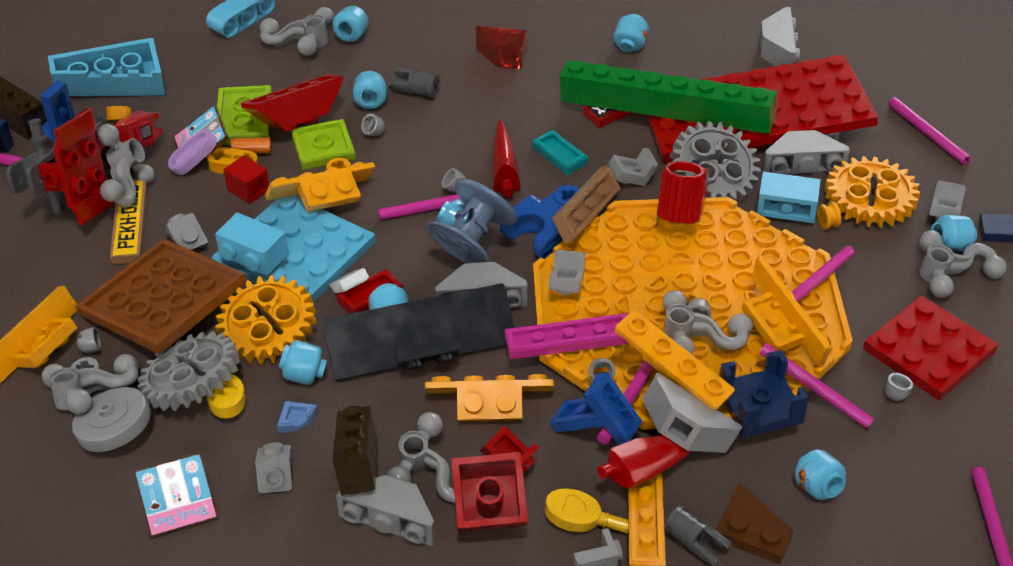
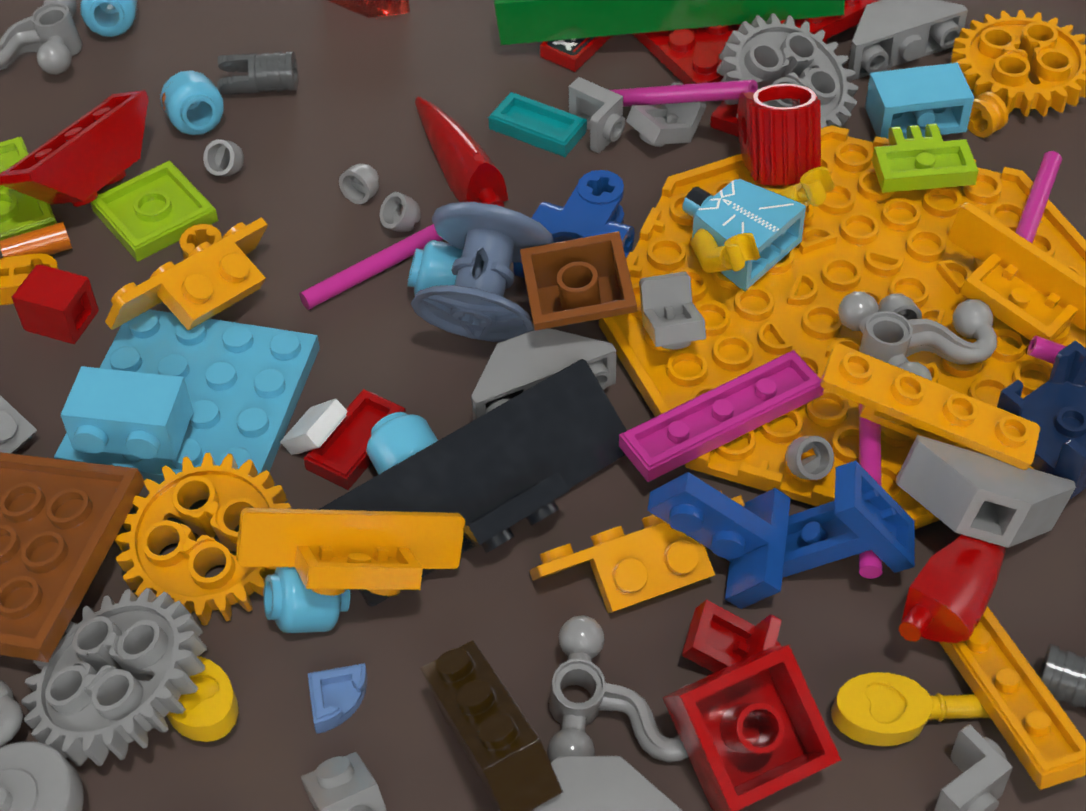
camera: 20 degrees left, 5 degrees up
(332, 342) = (351, 547): none -> light orange bracket
(440, 158) = (359, 183): none -> light grey hinge
(520, 240) = (578, 281): none -> dark orange slope
(535, 394) = (745, 535): none -> blue bracket
(586, 204) = (636, 193): medium nougat tile -> none
(595, 152) = (600, 108): none -> light grey bracket
(639, 154) = (686, 93): none -> dark pink piece
(639, 239) = (751, 226): none -> medium azure torso
(765, 231) = (923, 161): none -> lime hinge

